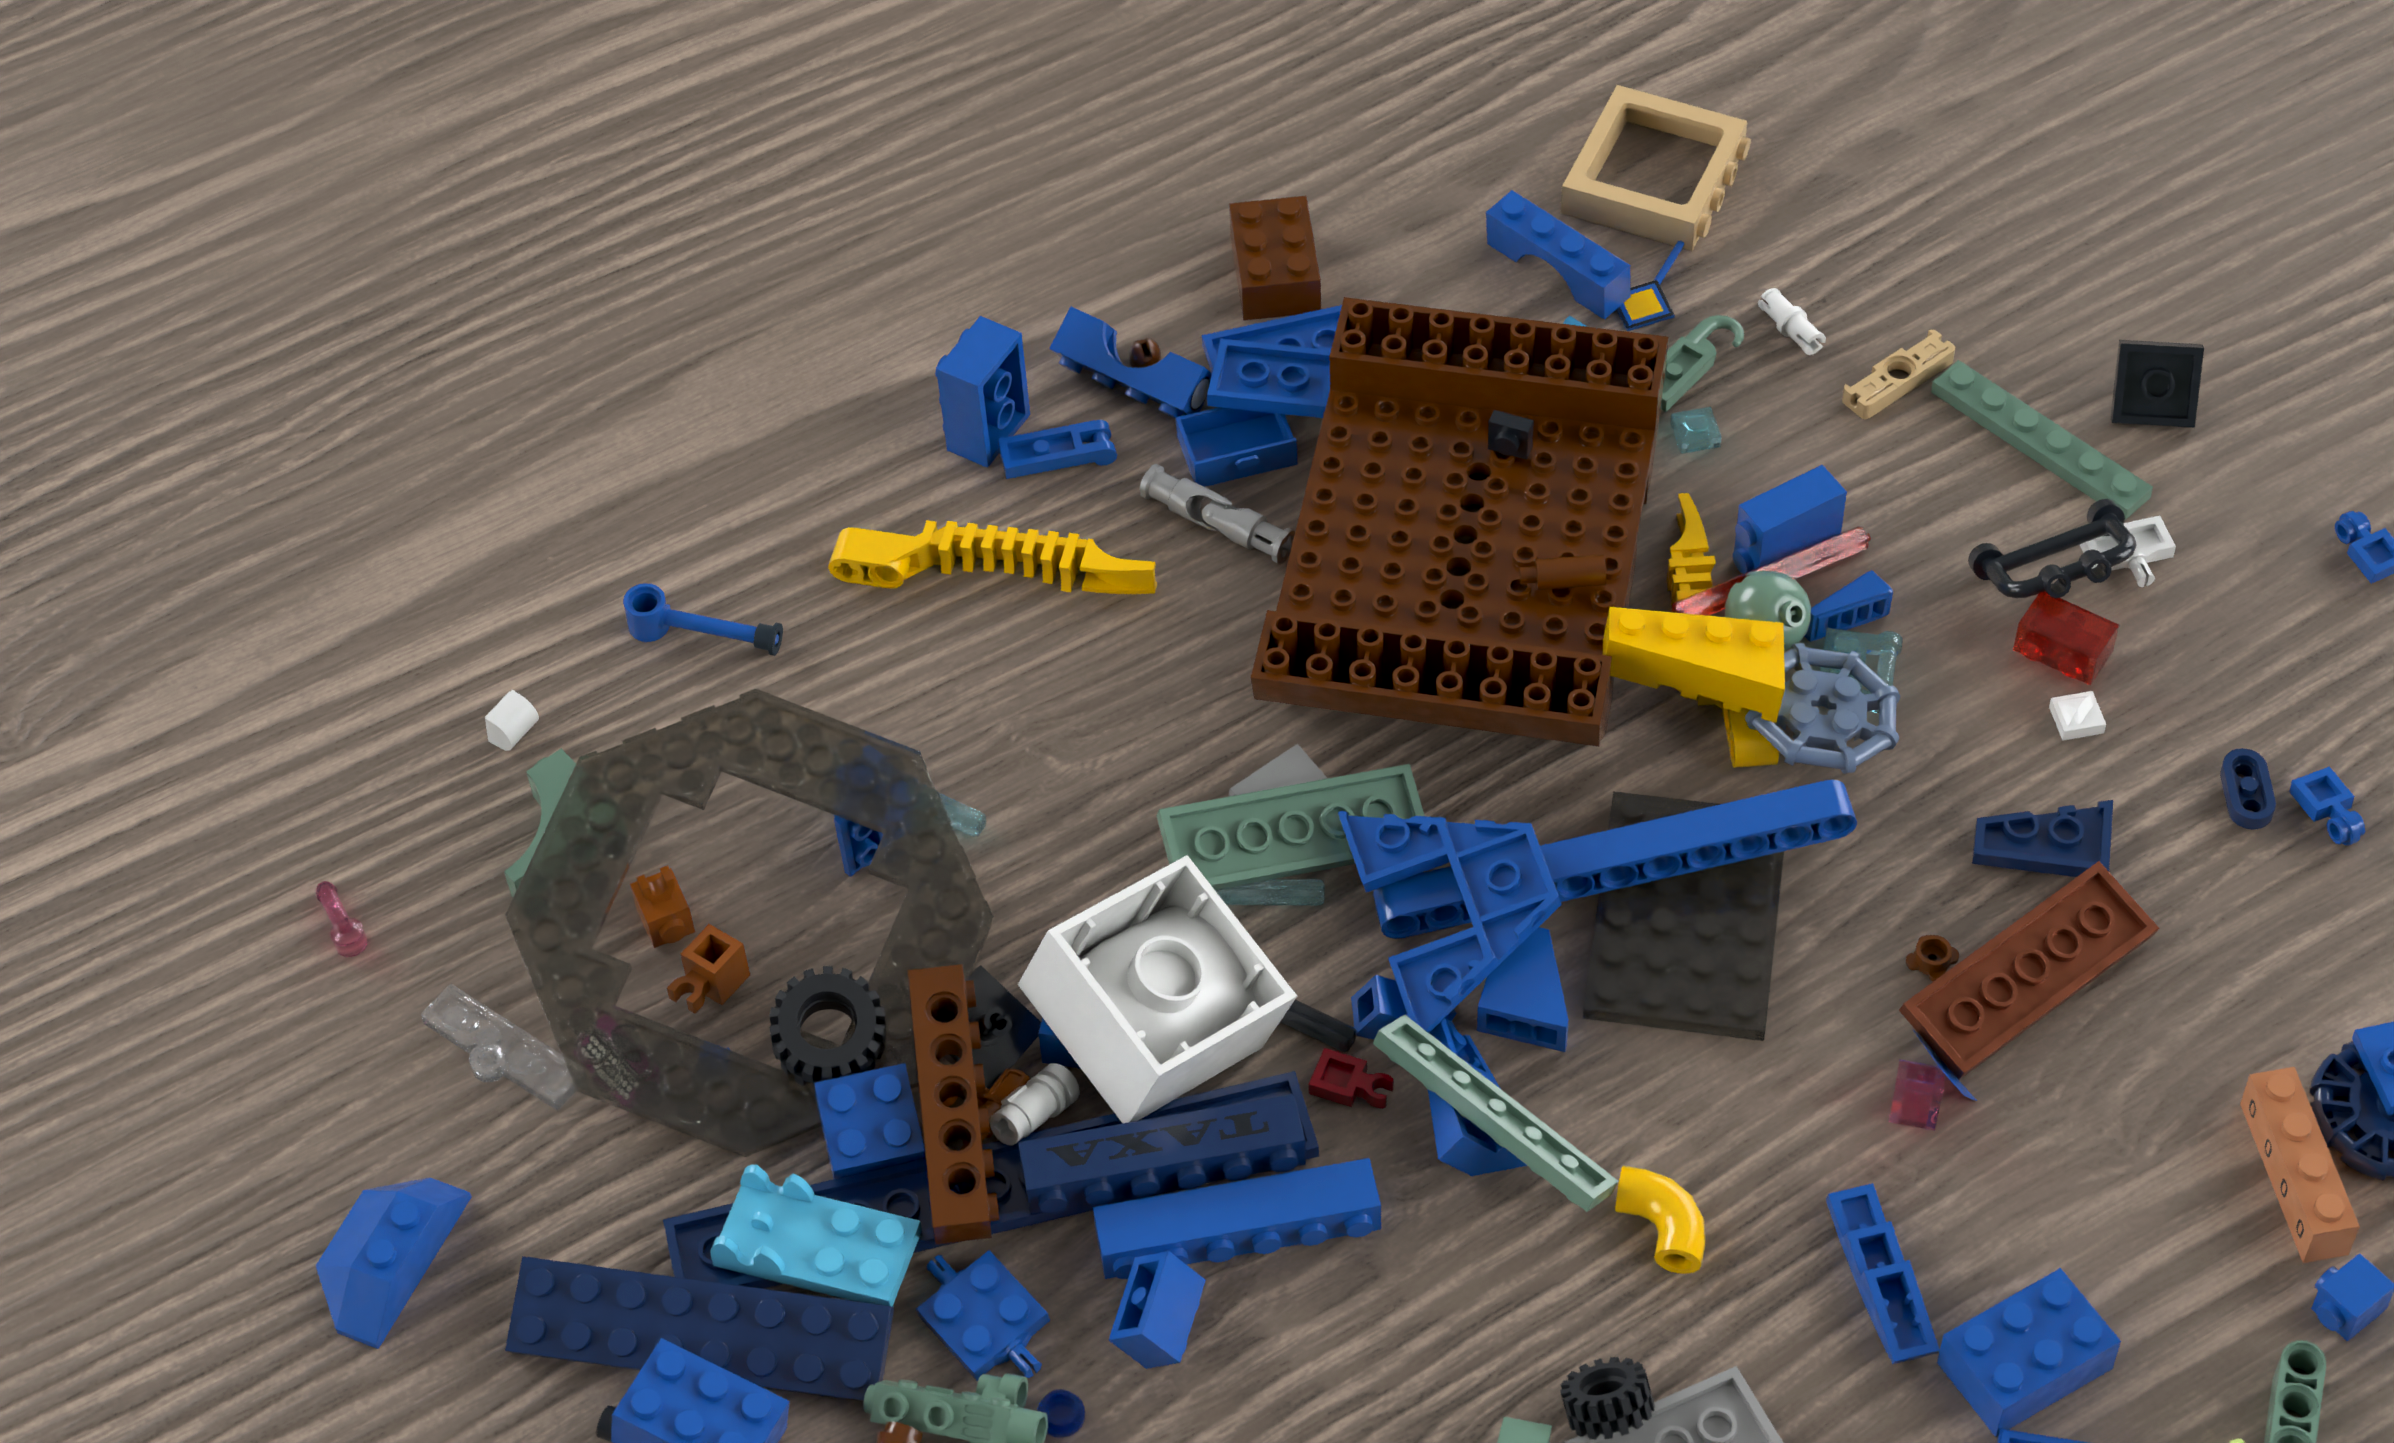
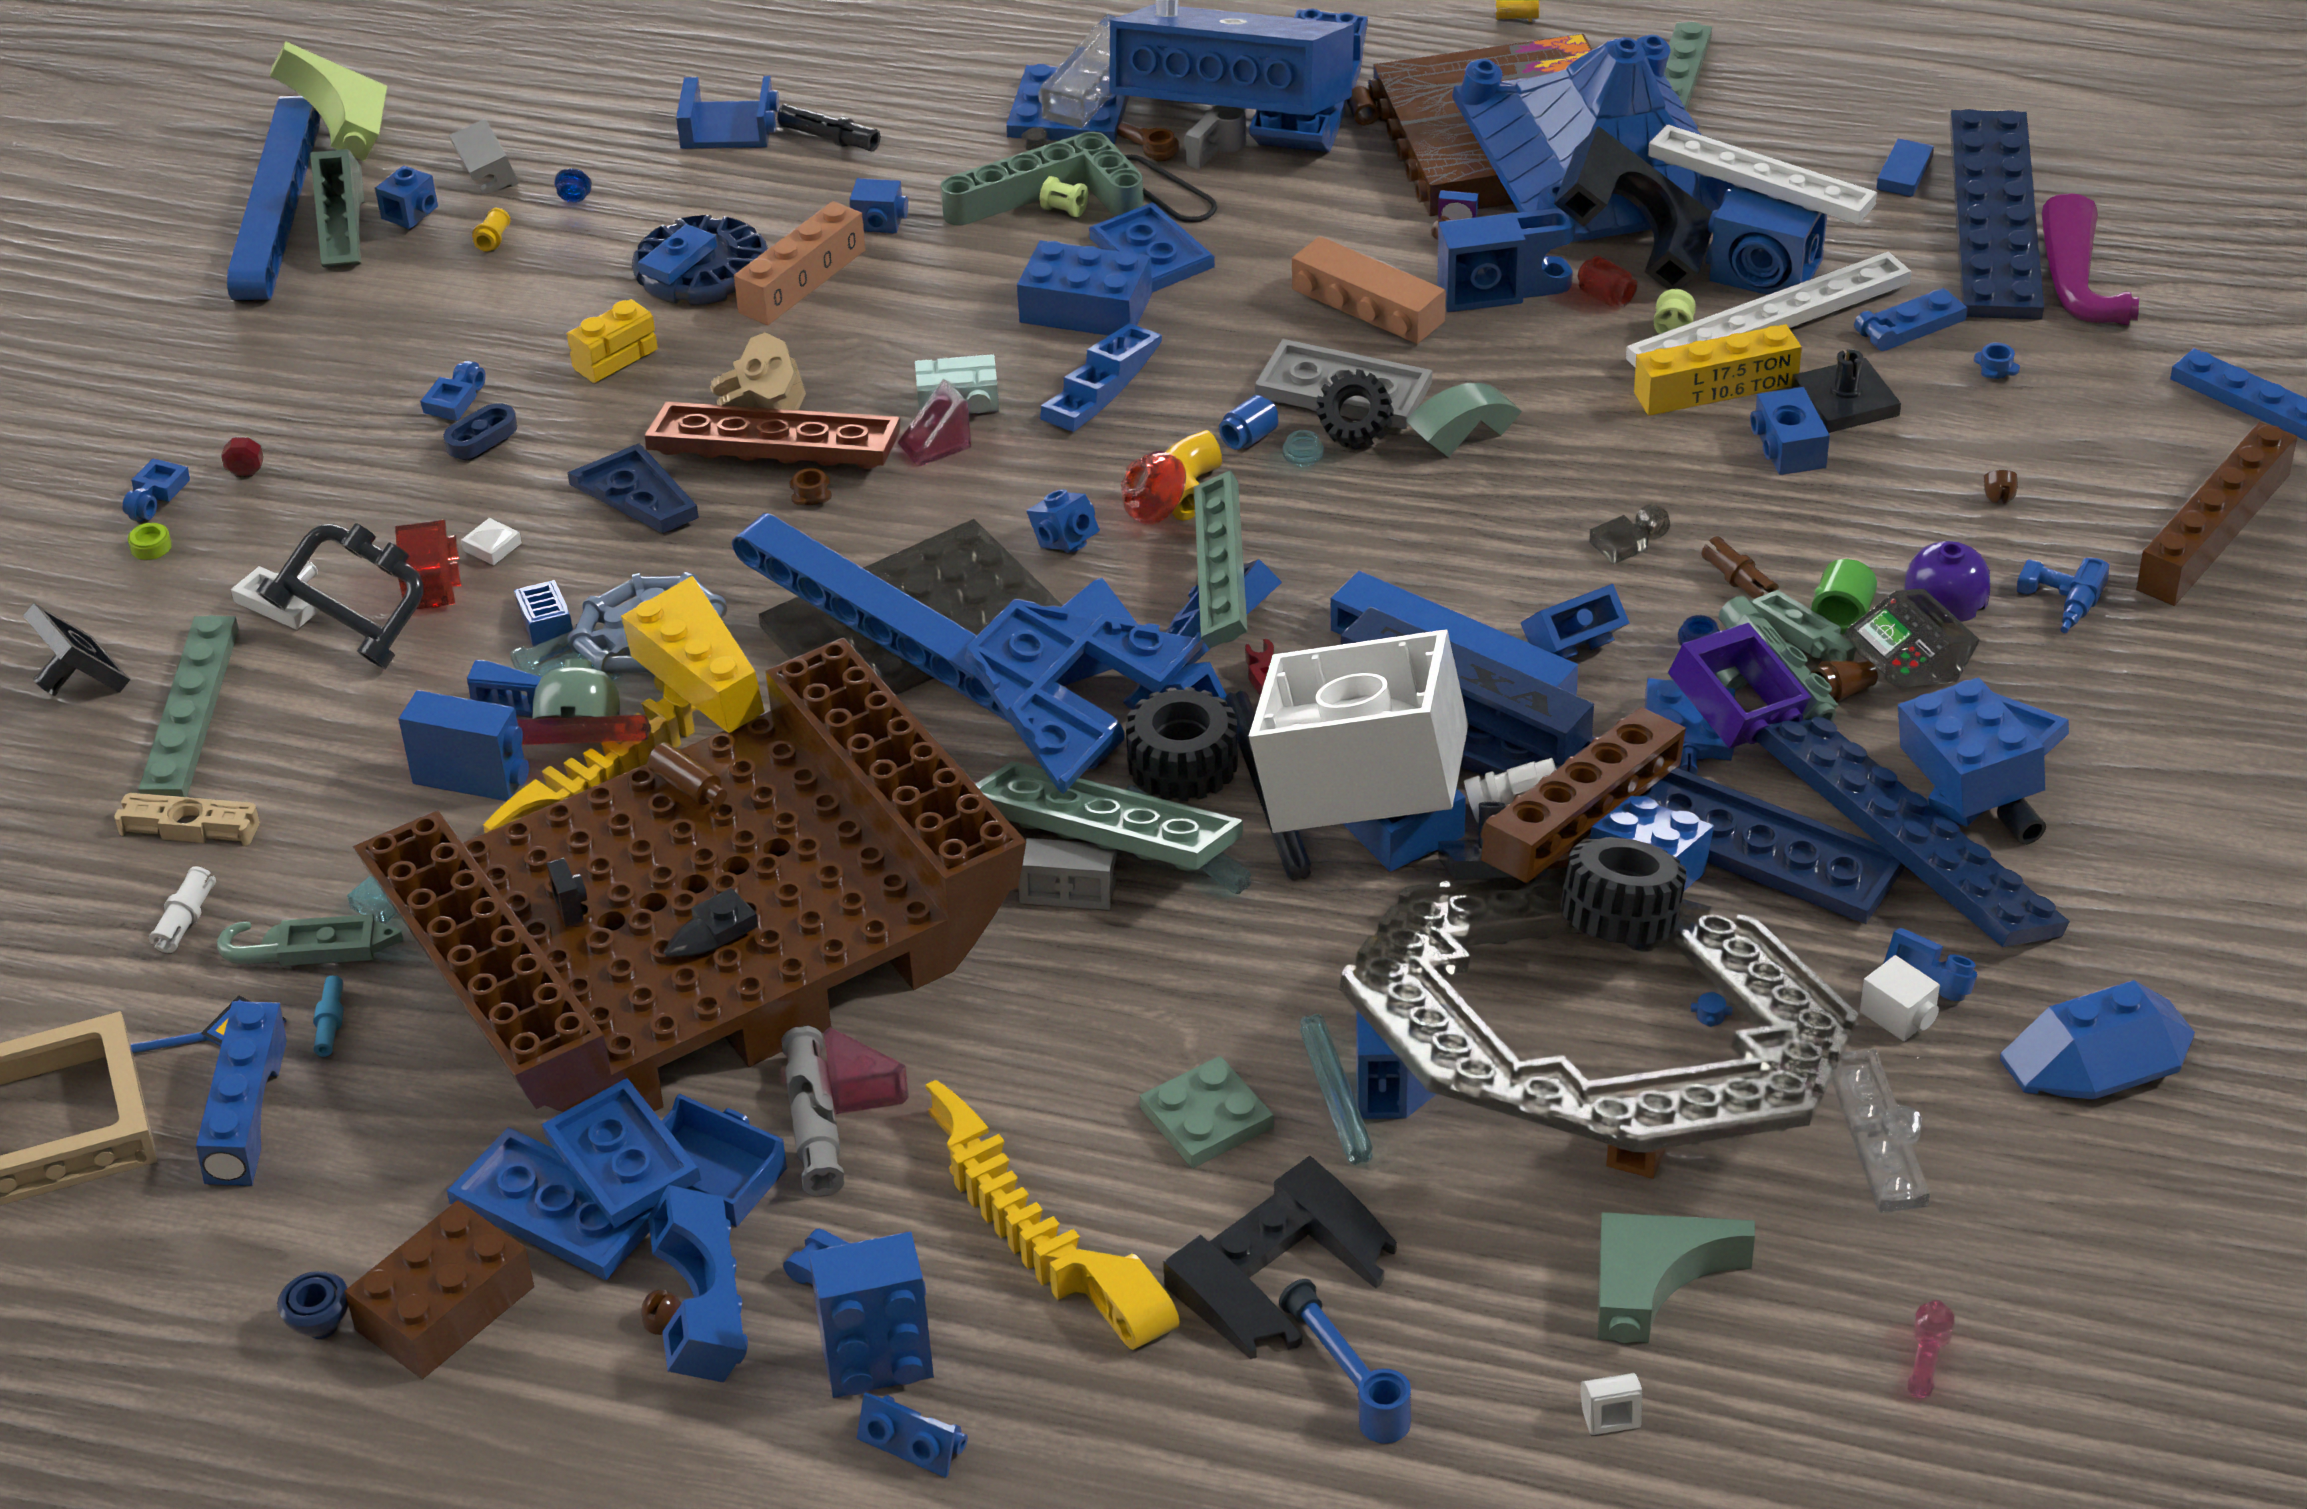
camera: 135 degrees left, 10 degrees down
(574, 1164) = (1900, 998): none -> white brick
(592, 1208) = (1954, 975): none -> blue plate
(712, 967) = (1651, 1042): dark orange brick -> none
(815, 1240) = (1773, 812): medium azure hinge -> none
(847, 615) = (1216, 1273): none -> black wedge
(897, 401) = (908, 1434): none -> blue hinge
(977, 715) = (1206, 1111): none -> sand green plate
(989, 1341) = (1748, 652): none -> dark purple window
(1220, 552) = (862, 1075): none -> clear pink slope
(1327, 195) = (314, 1304): none -> dark blue brick
(1330, 916) = (1182, 744): none -> black tyre
(1398, 505) = (713, 925): none -> black plate
(1614, 1339) = (1303, 448): none -> clear light blue plate
(1660, 1160) = (1158, 492): none -> clear red piece
(1682, 1071) = (1063, 521): none -> blue brick
(1688, 1321) = (1248, 422): none -> blue brick
(1935, 675) = (543, 611): none -> blue slope
(1946, 1070) = (907, 423): blue sticker -> none
(1970, 1147) = (971, 376): none -> light aqua brick
(2115, 1005) = (762, 377): none -> tan hinge
(2297, 946) = (612, 340): none -> yellow brick
(2300, 519) = (149, 541): none -> lime tile
(2360, 618) = (242, 456): none -> dark red tile

